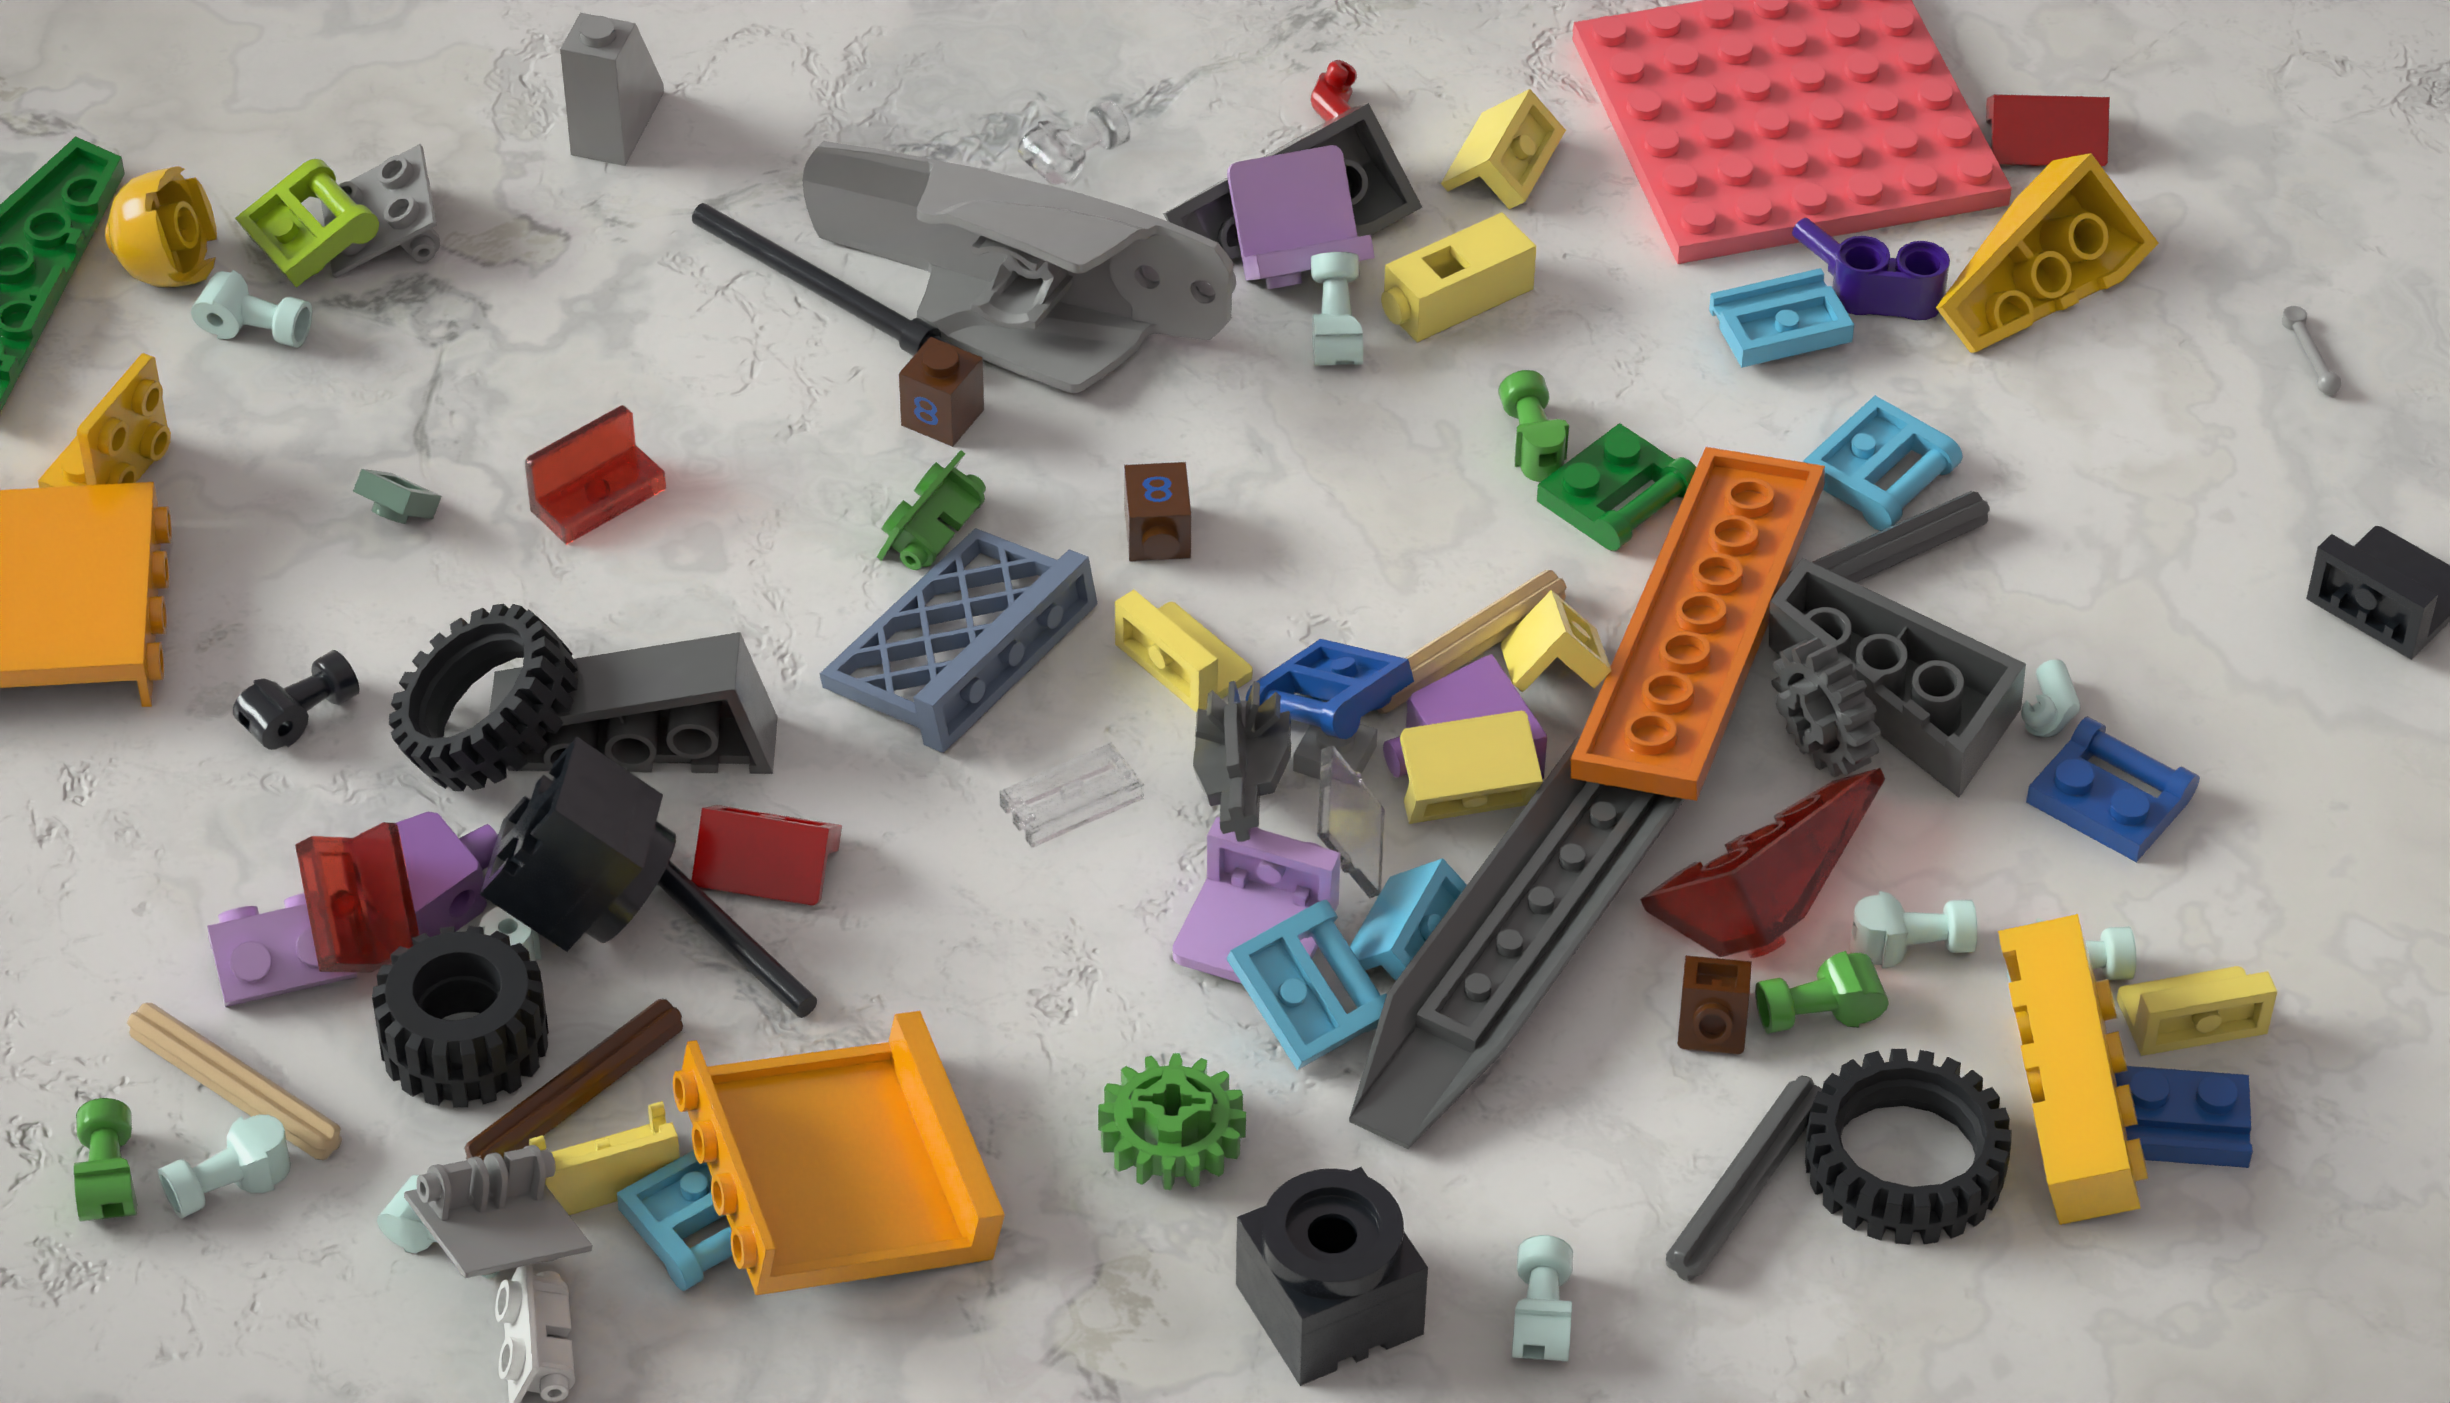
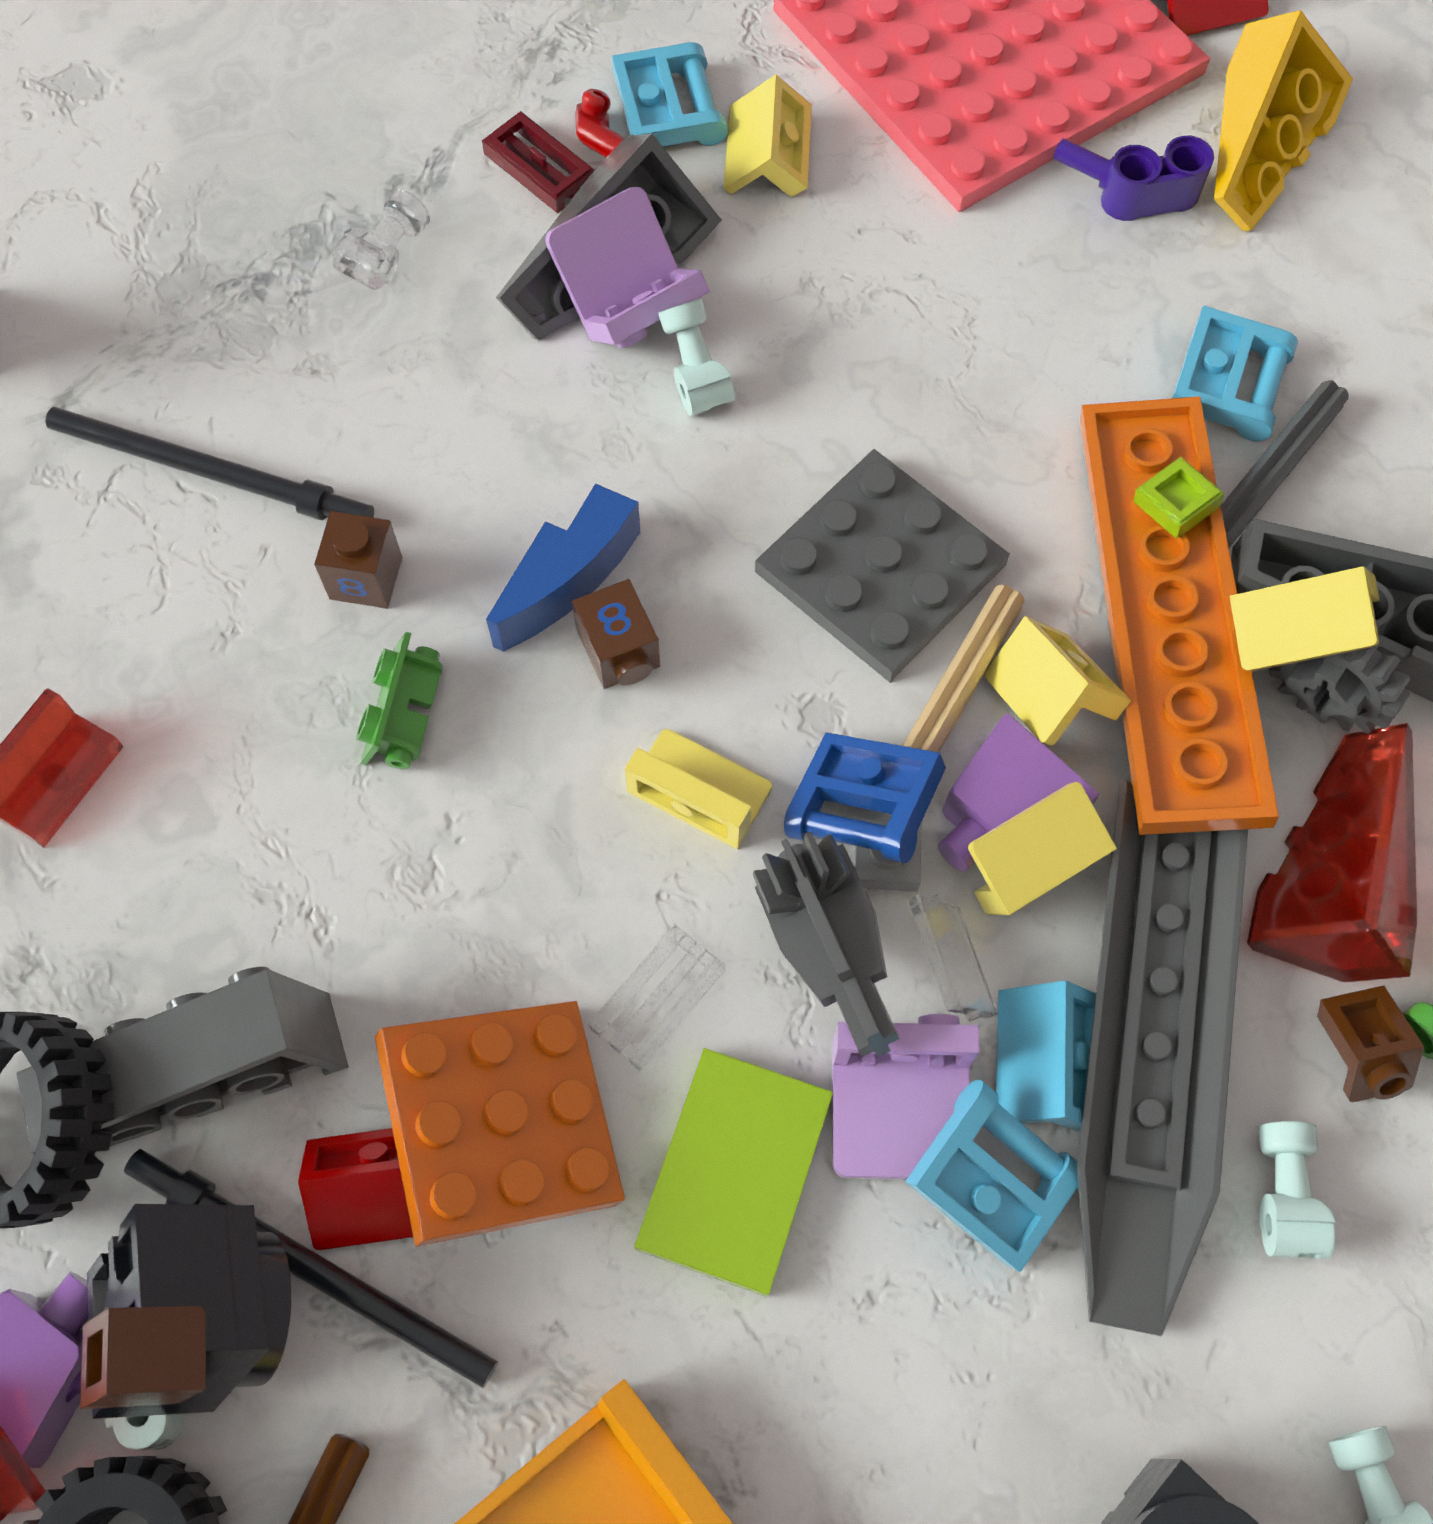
camera: 20 degrees left, 20 degrees up
(550, 822) = (143, 1356): none -> reddish brown panel
(891, 820) = (497, 1121): none -> orange plate
(994, 652) = (527, 856): sand blue fence -> none
(1022, 266) = (386, 404): light grey piece -> none
(1082, 932) = (734, 1172): none -> lime tile
(1092, 461) = (564, 567): none -> blue slope
(1171, 1121) = (939, 1440): bright green gear -> none
(1251, 115) = (530, 165): none -> dark red tile
(1400, 86) = (652, 100): none -> medium azure plate
(1443, 529) = (881, 564): none -> dark grey plate
(1458, 277) = (787, 286): light yellow brick -> none
(1539, 441) = (933, 443): bright green leg -> none
(1572, 1095) = (1291, 1218): none -> light aqua leg
(1608, 474) = (999, 461): green plate -> none
(1748, 533) = (1178, 497): none -> lime tile
(1781, 317) = (1081, 246): medium azure plate -> none
(1796, 628) = (1306, 619): none -> light yellow panel

